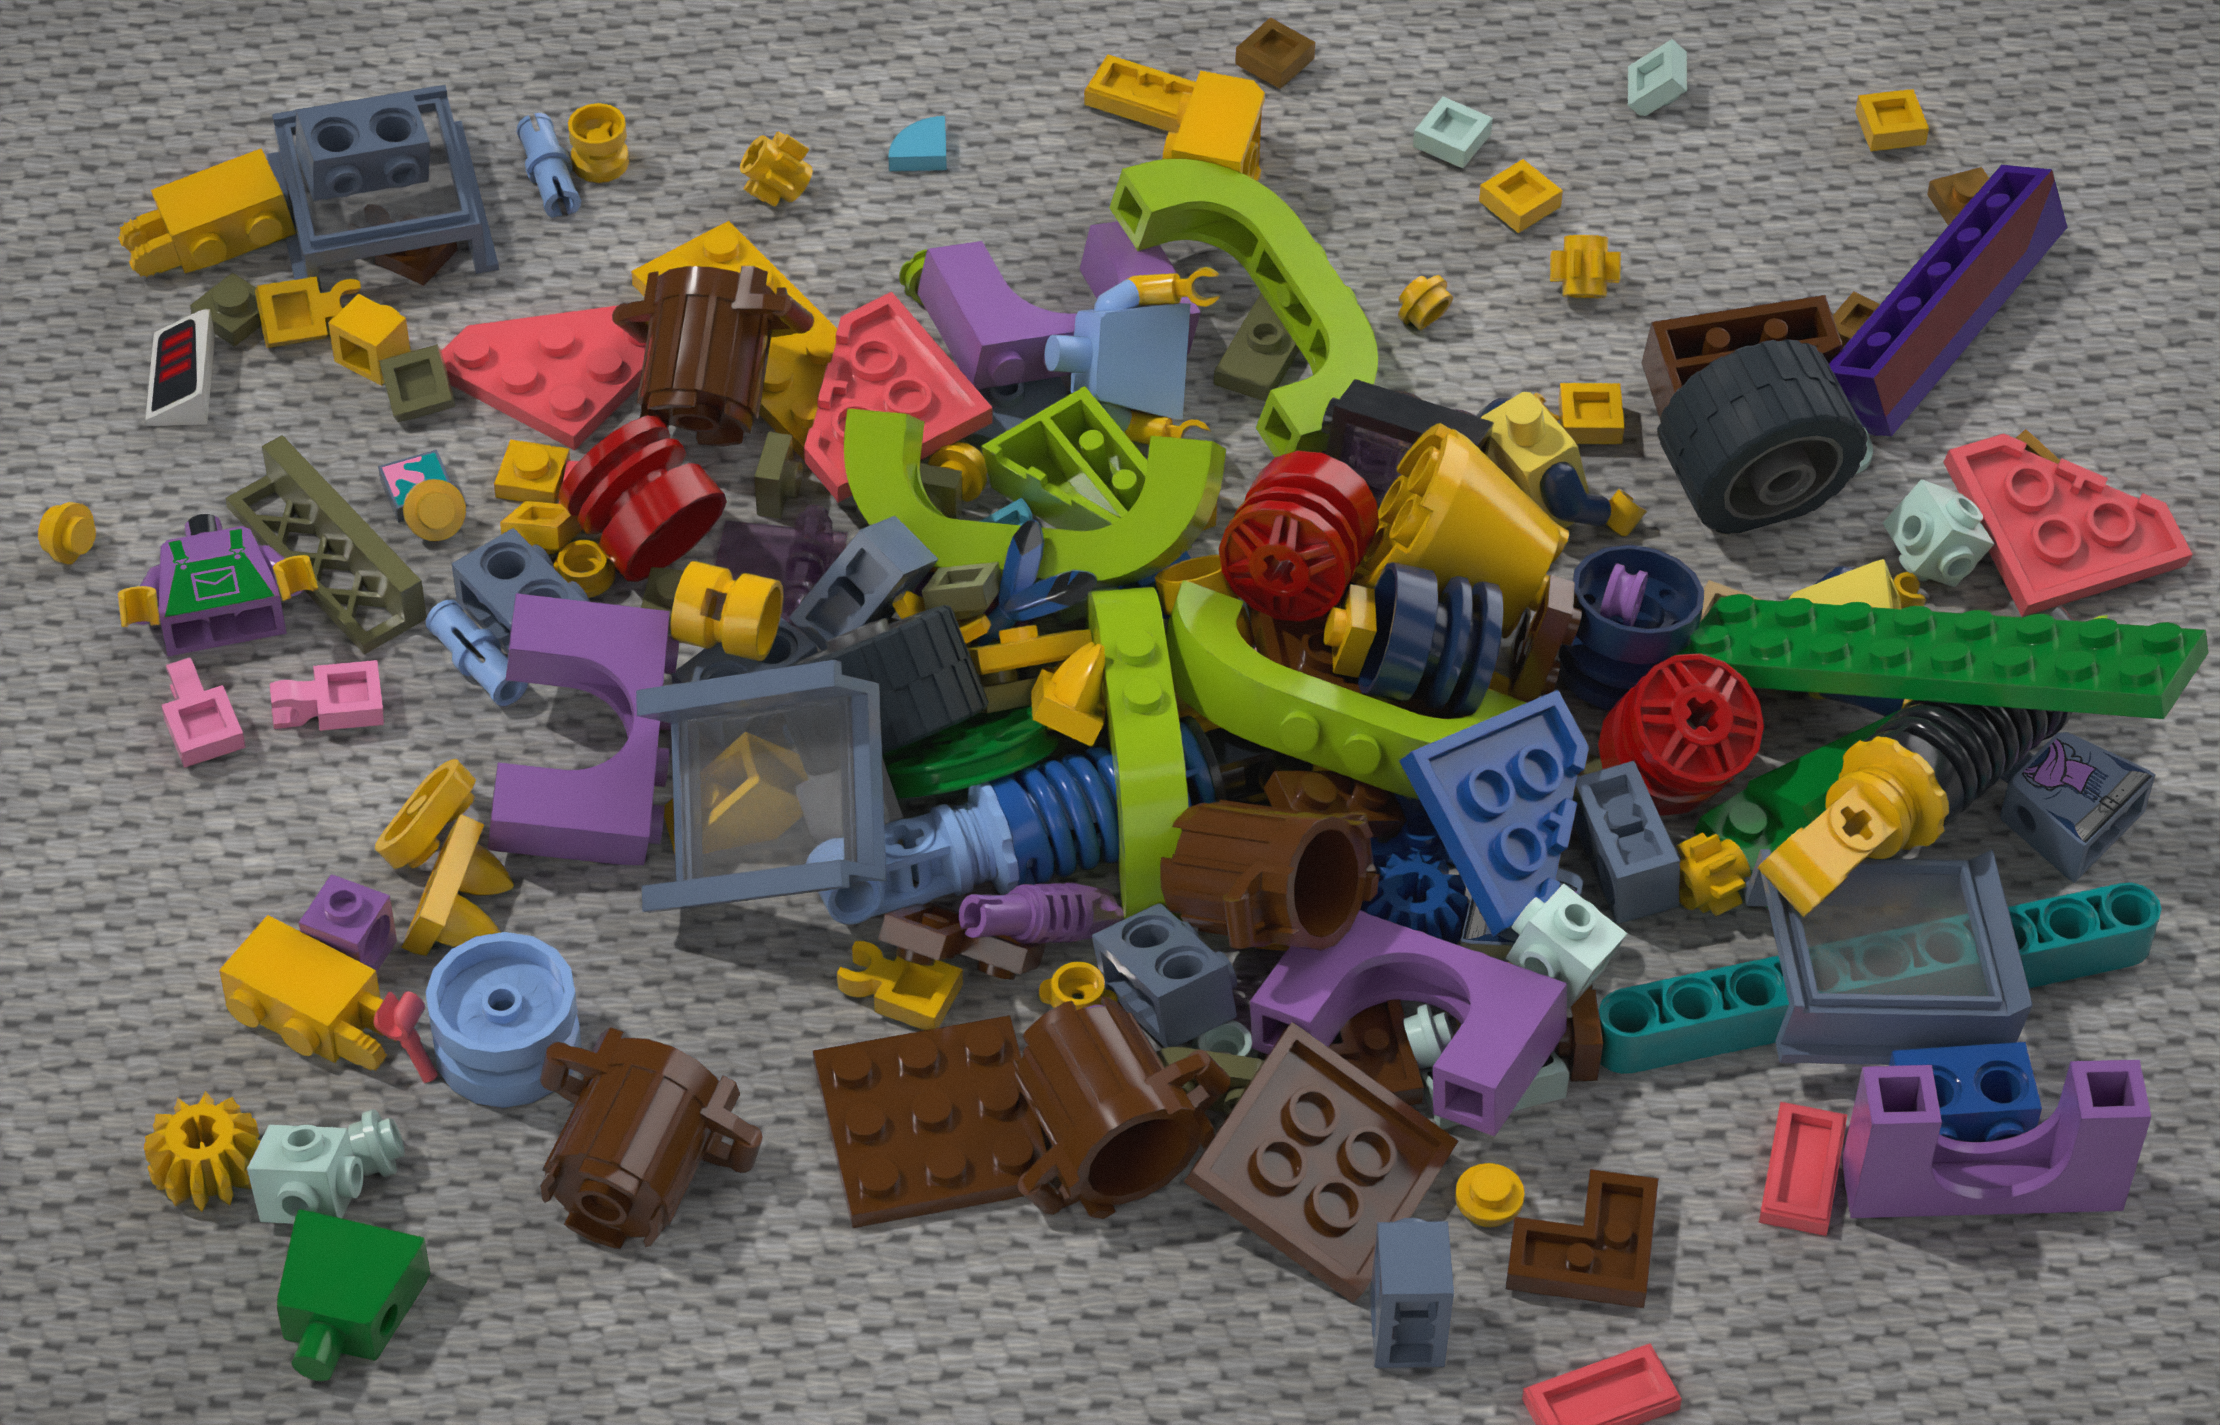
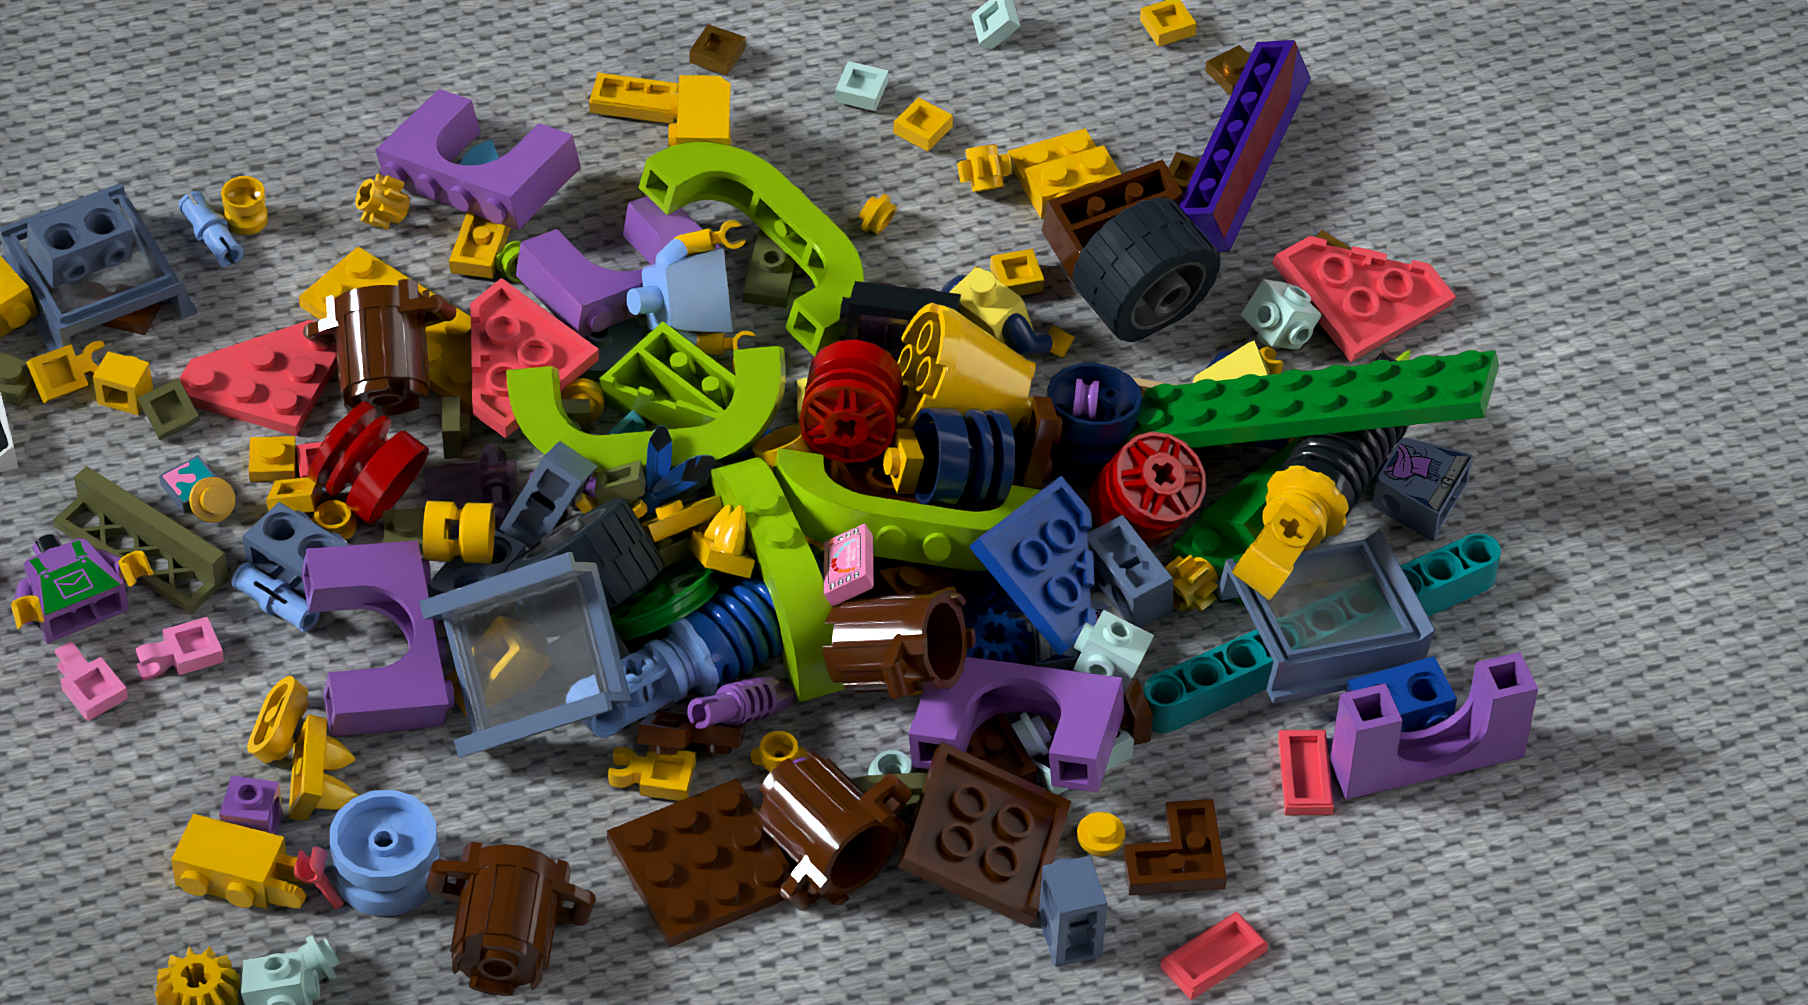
camera: 15 degrees left, 0 degrees up
(890, 237) = (478, 246): none -> yellow plate
(928, 179) = (500, 190): none -> medium lavender arch
(1166, 975) = (840, 727): sand blue brick -> none
(1226, 754) = (848, 565): none -> bright pink tile
(1690, 280) = (1060, 167): none -> yellow plate

